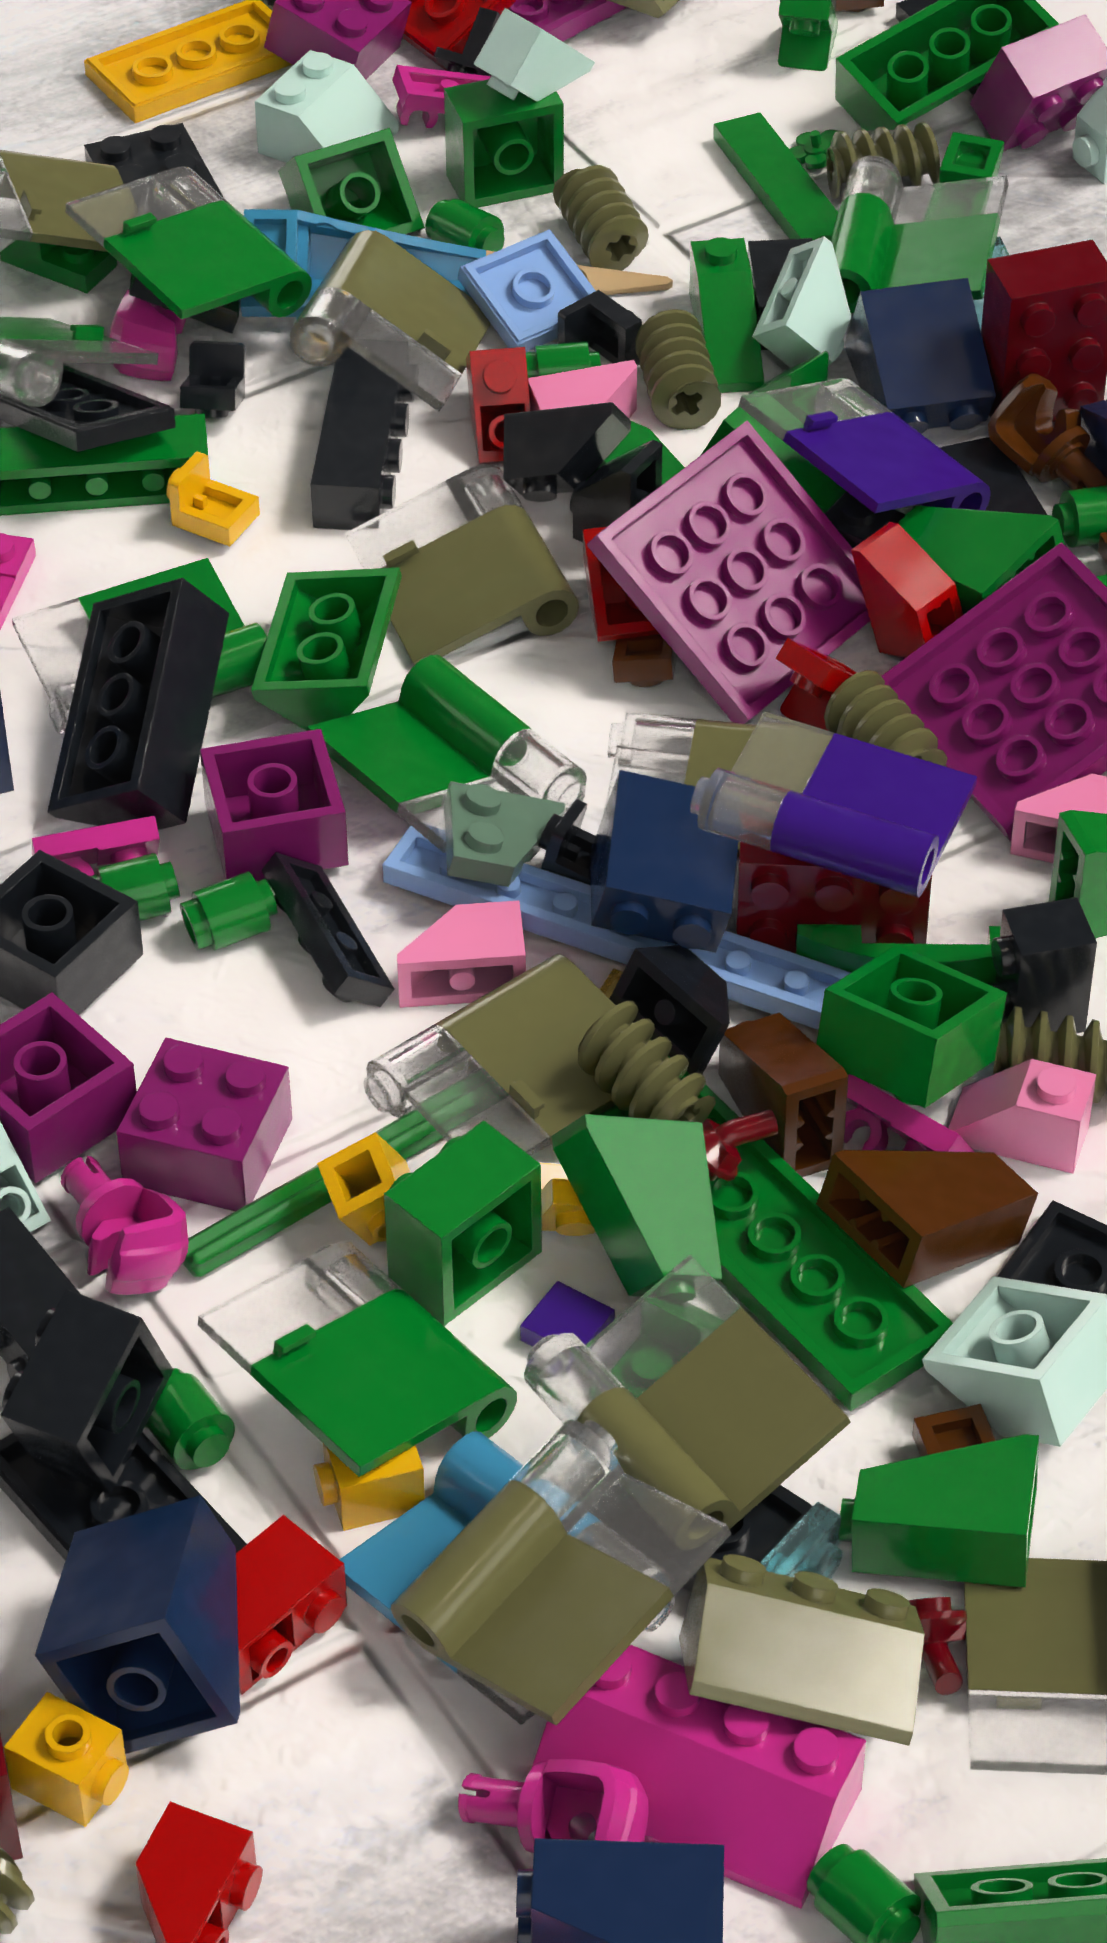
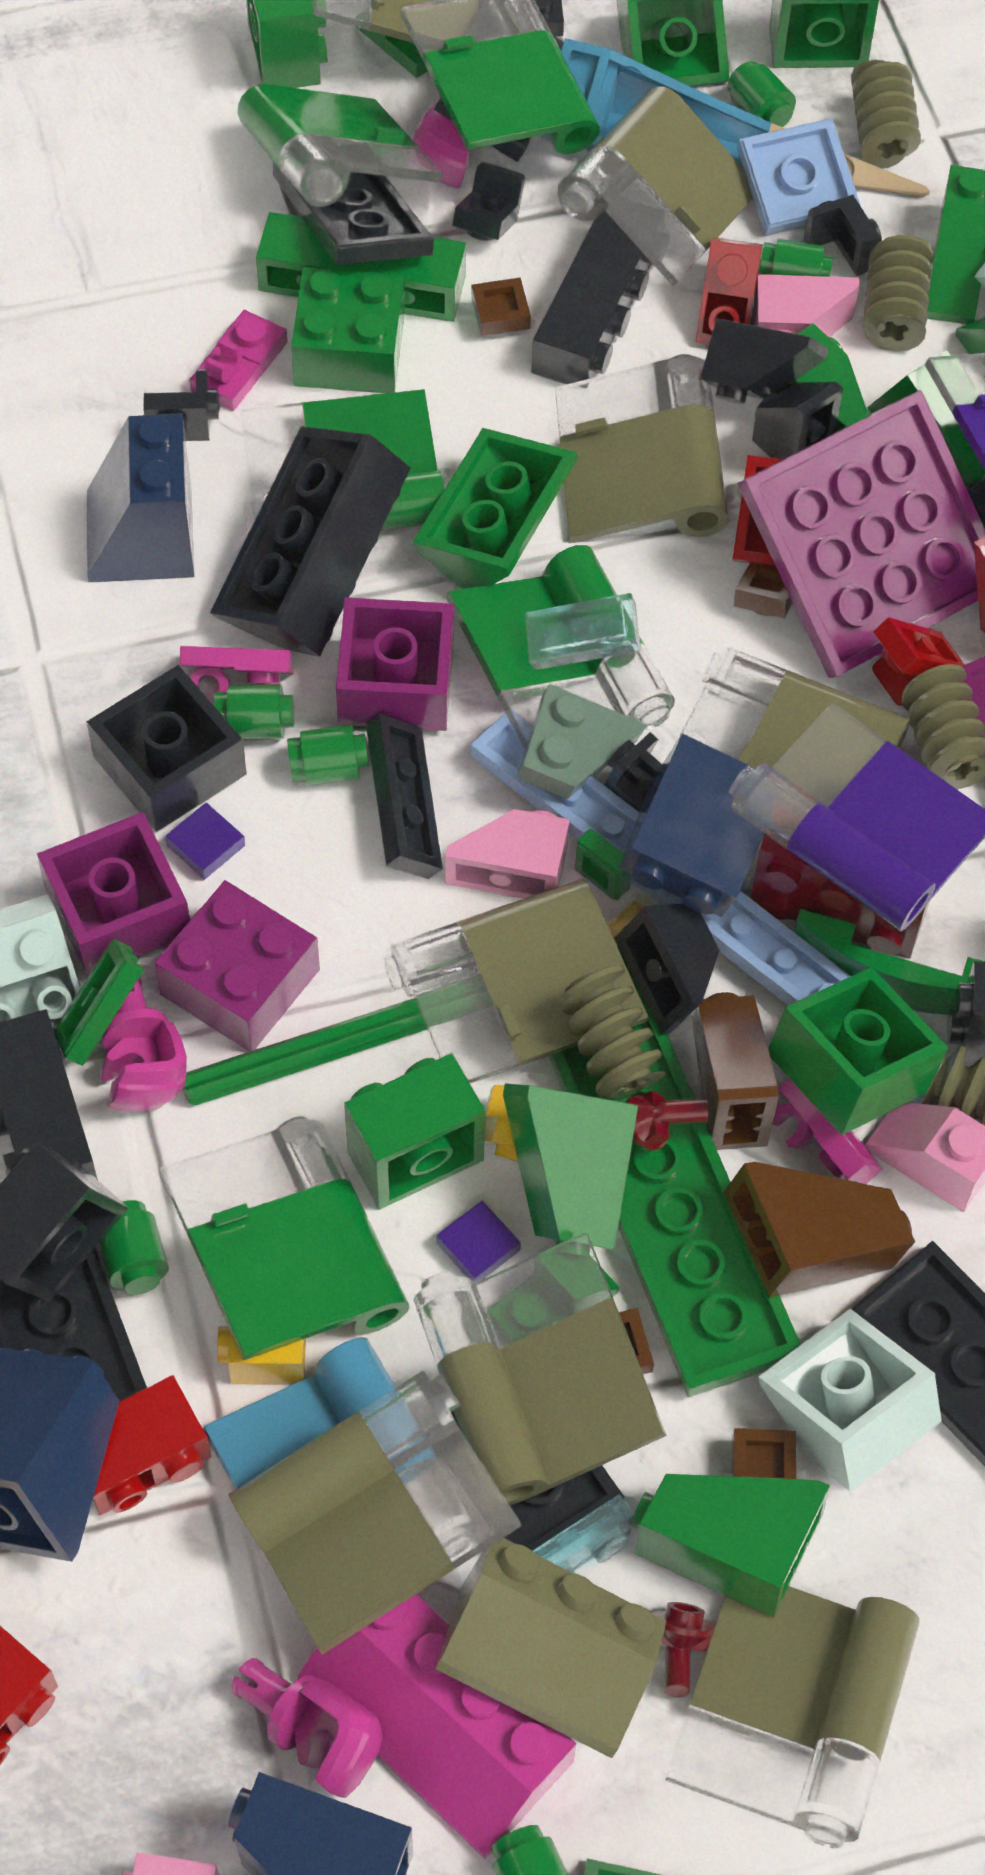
camera: 15 degrees right, 15 degrees up
(66, 1185) = (97, 1001): none -> green tile
(104, 521) = (348, 330): none -> green brick
(126, 1021) = (205, 840): none -> dark purple tile
(208, 505) = (444, 332): yellow bracket -> none
(260, 469) = (500, 306): none -> reddish brown plate
(358, 1181) = (345, 1065): yellow brick -> none
(468, 726) = (582, 631): none -> clear light blue plate
(569, 935) = (599, 864): none -> green tile

